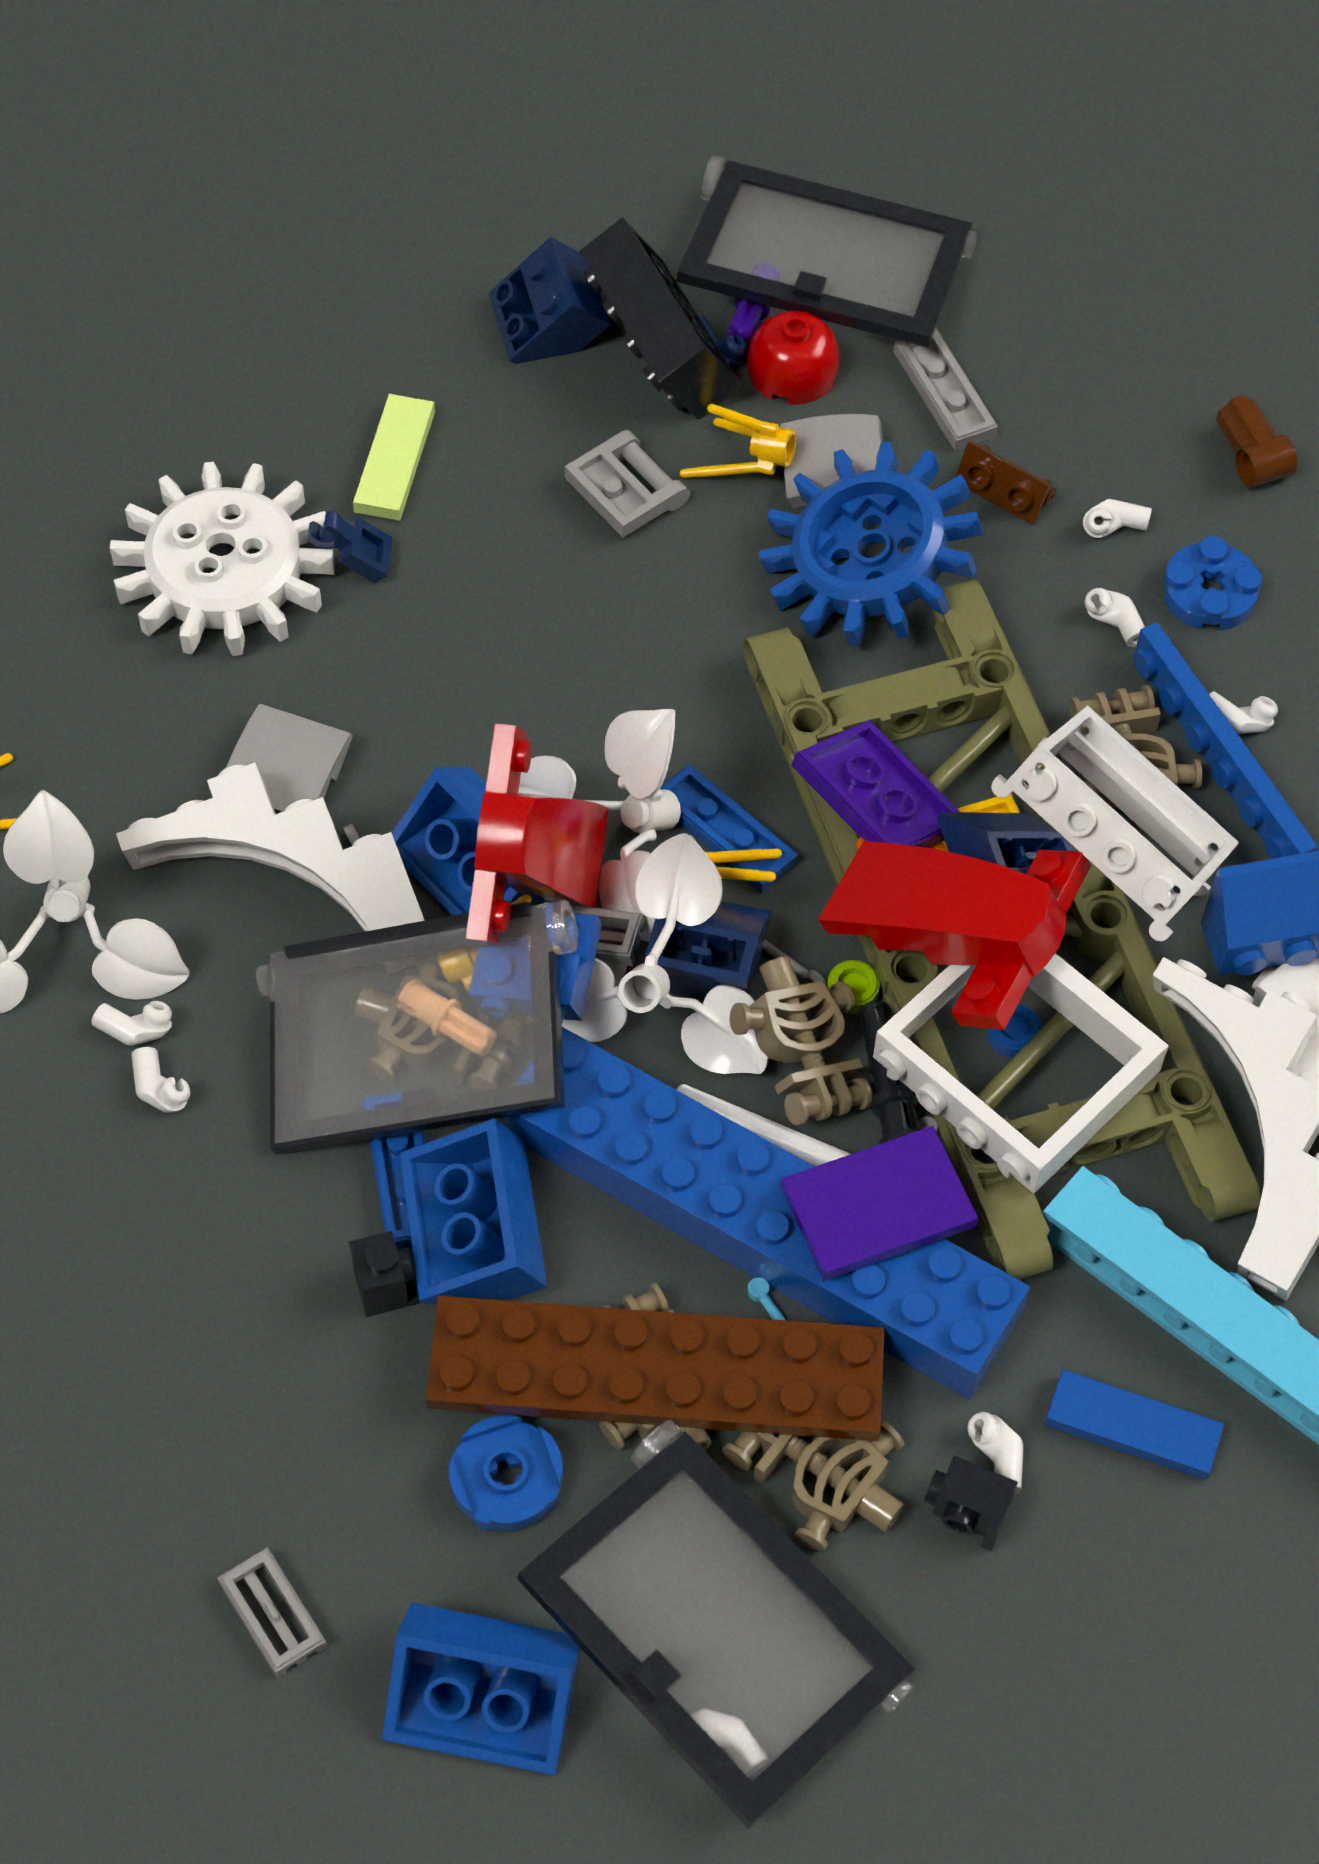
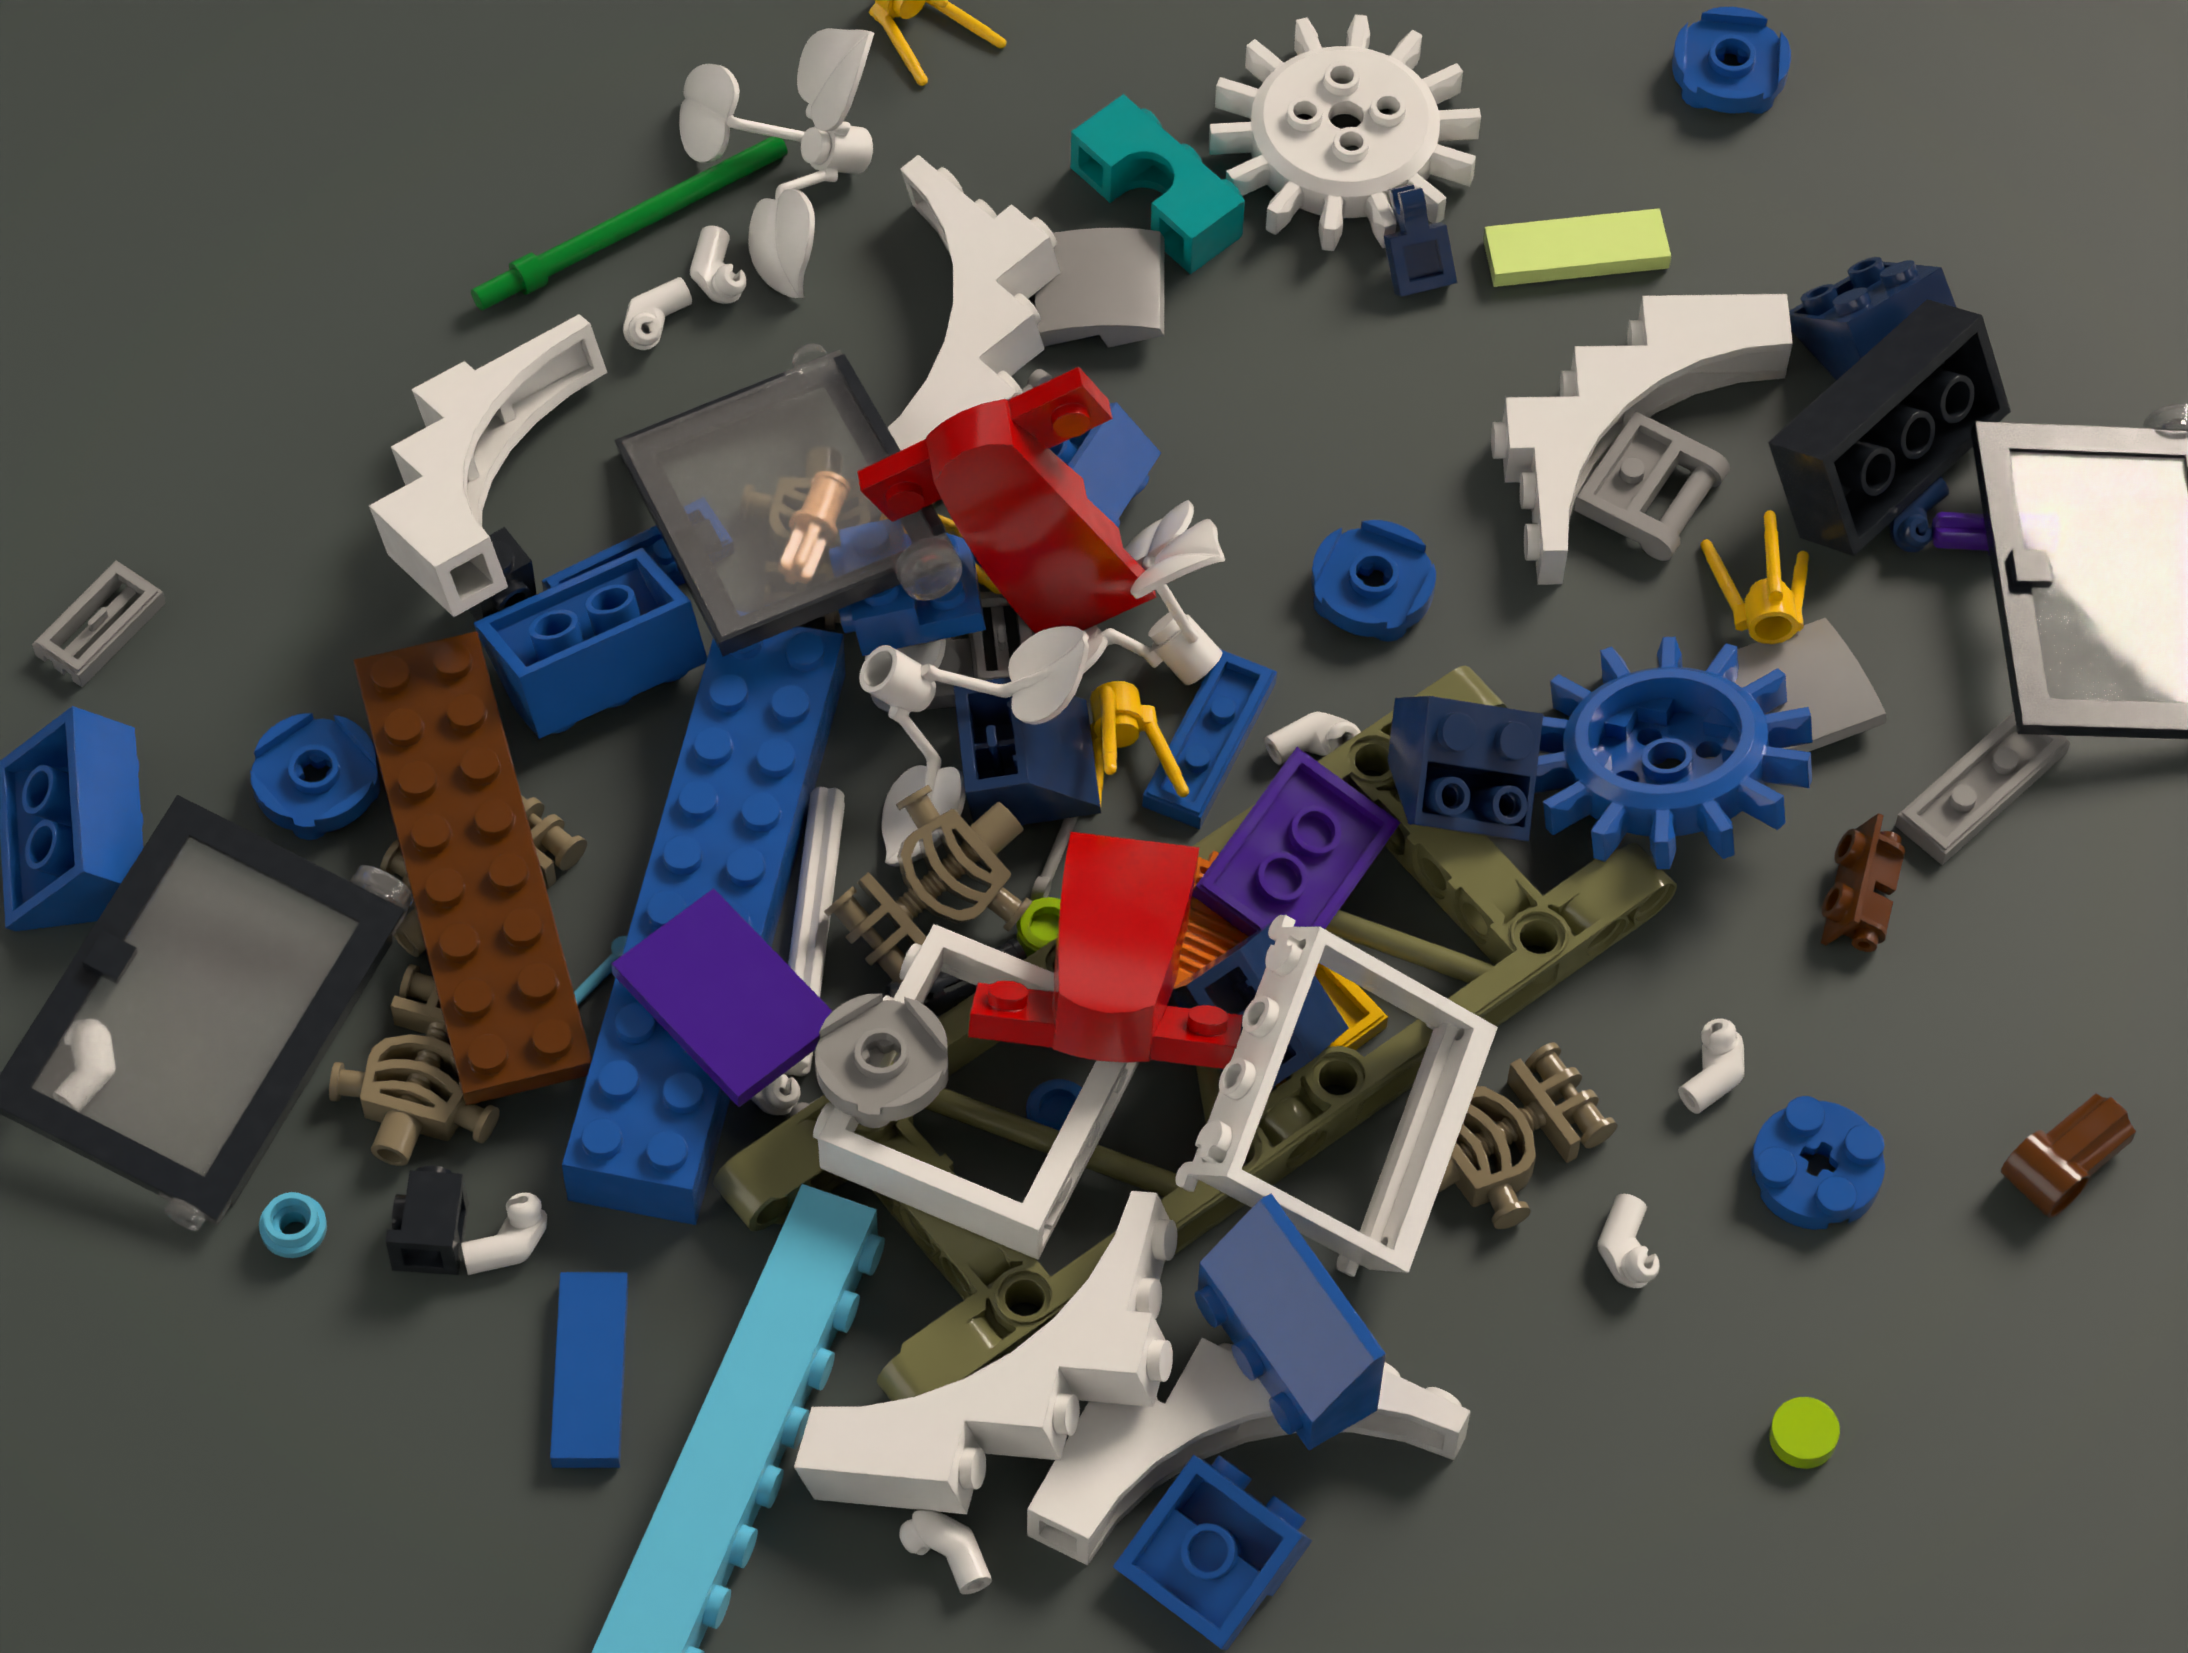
camera: 70 degrees right, 0 degrees up
(69, 1160) = (532, 271): none -> green bar
(243, 672) = (1131, 150): none -> teal arch
(282, 328) = (1724, 87): none -> blue plate
(330, 1285) = (448, 467): none -> white arch
(539, 481) = (1672, 353): none -> white arch
(619, 653) = (1368, 610): none -> blue plate
(753, 756) = (1313, 733): none -> white arm
(793, 357) = (1936, 601): red cylinder -> none
(846, 657) = (1465, 765): none -> dark blue slope
(934, 1596) = (287, 1209): none -> medium azure plate
(988, 1129) = (889, 1092): none -> light grey plate
(1113, 515) = (1872, 1023): white arm -> none
(1217, 741) = (1534, 1248): blue plate -> none

